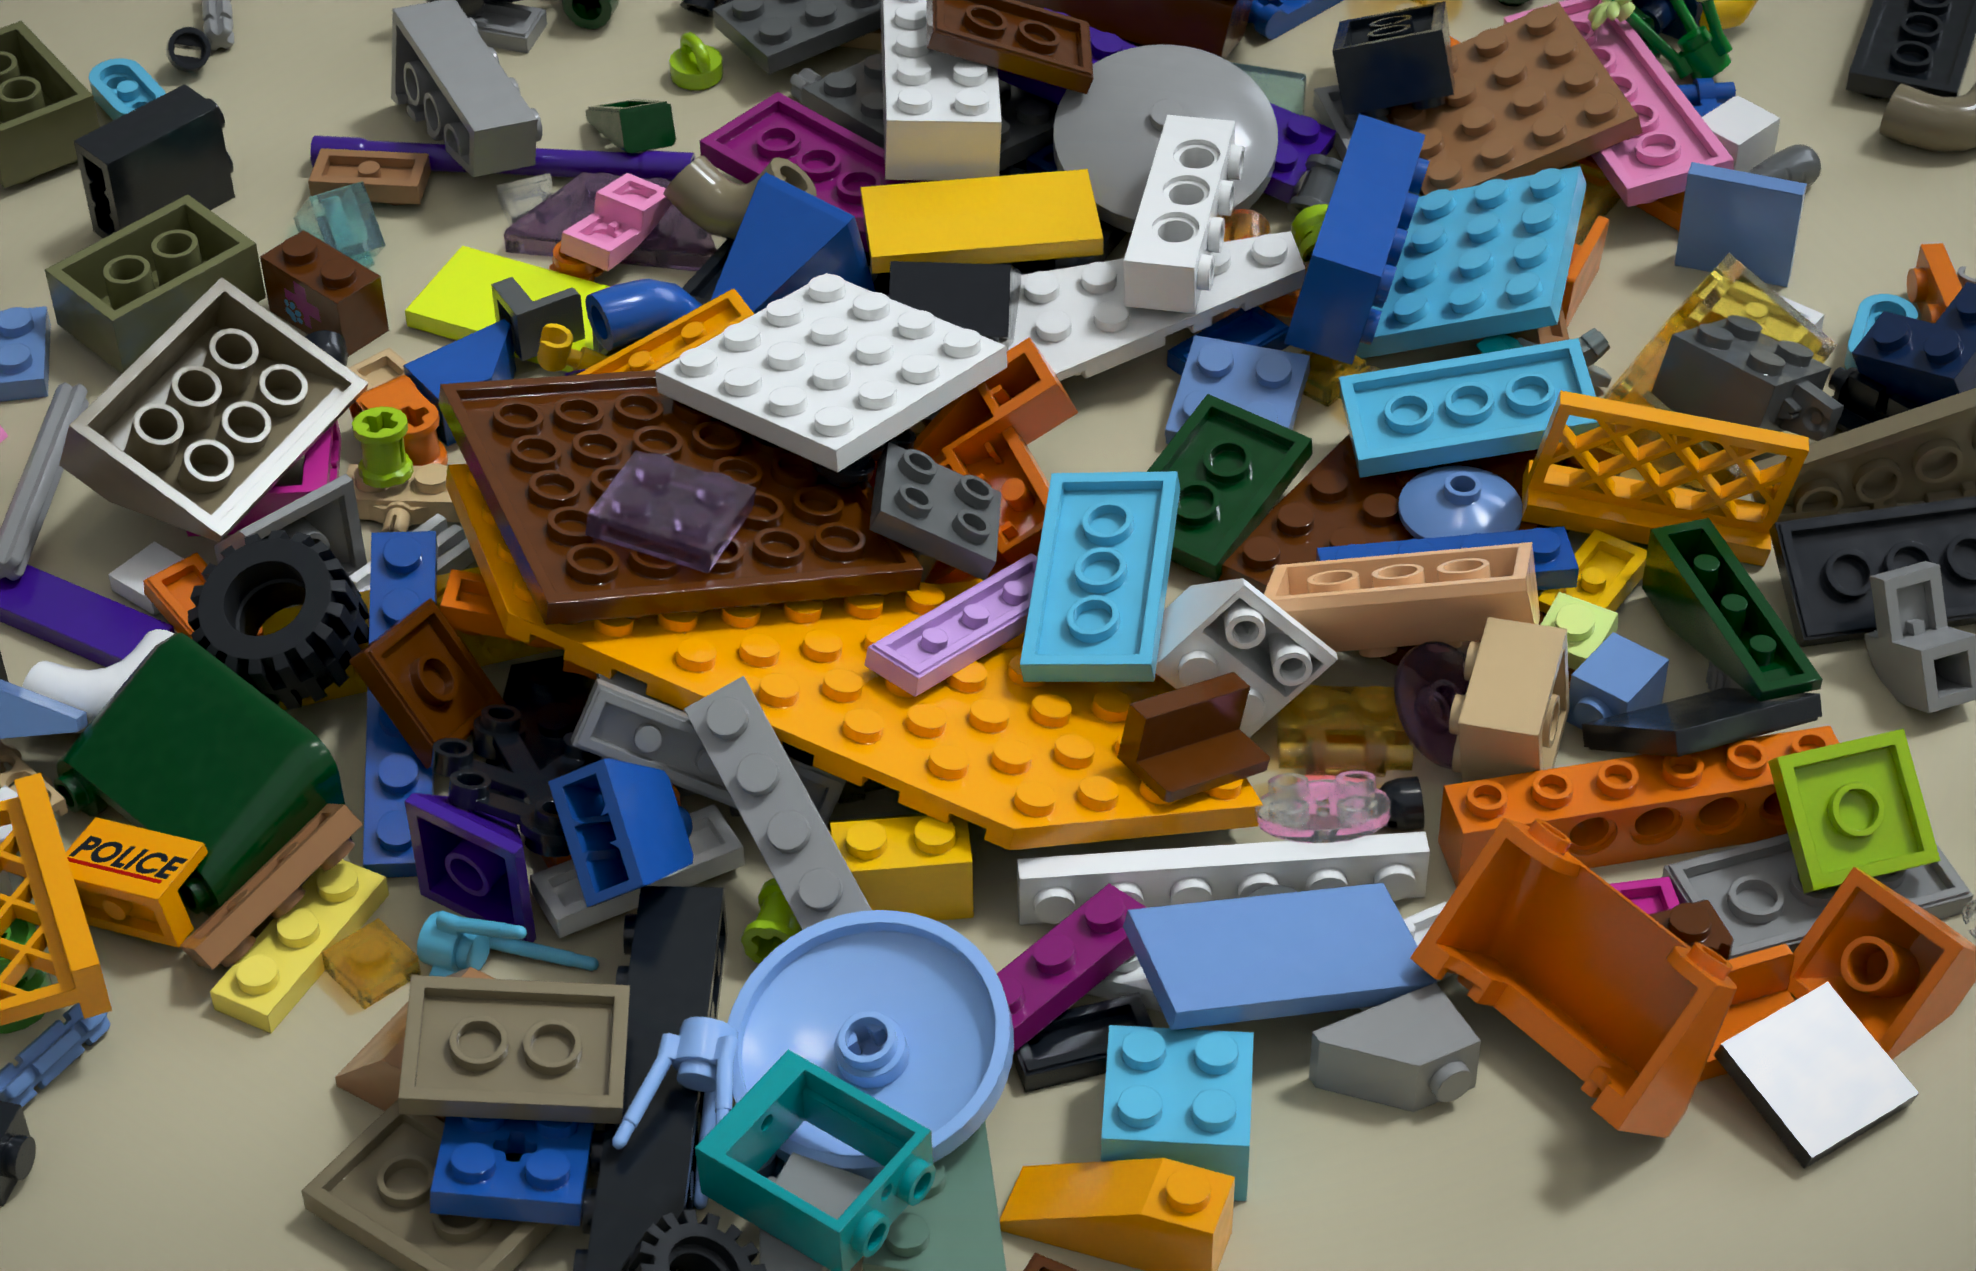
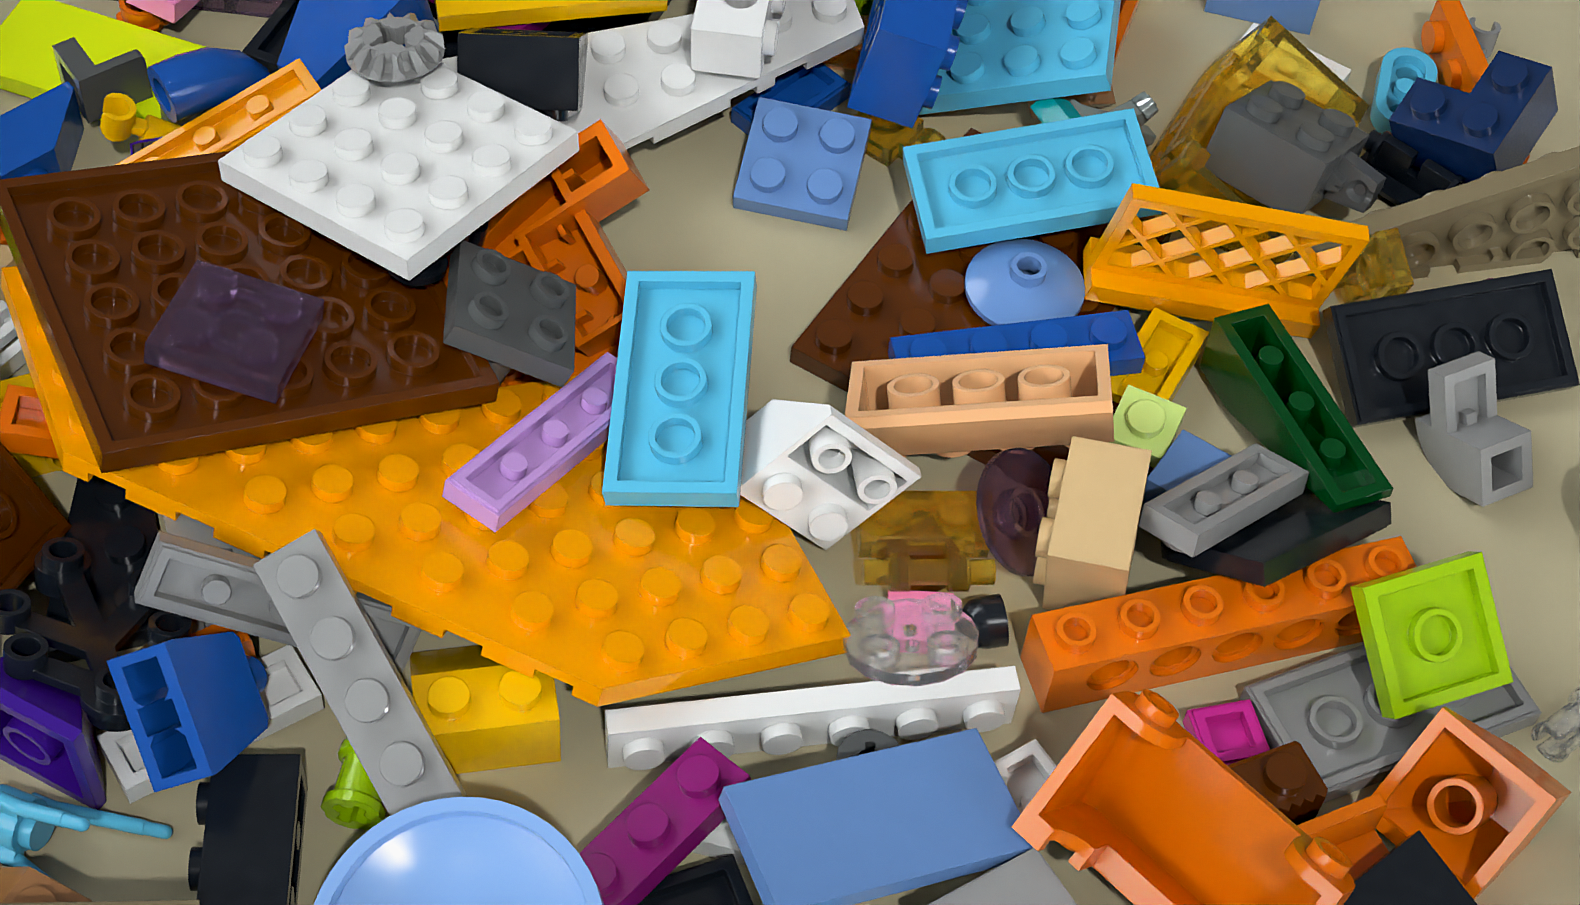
camera: 10 degrees left, 10 degrees up
(828, 273) = (379, 52): none -> light grey gear
(1191, 739) = (779, 574): reddish brown panel -> none
(1229, 479) = (801, 252): dark green plate -> none
(1644, 685) = (1222, 500): none -> light grey plate
(1832, 486) = (1380, 269): none -> clear yellow plate

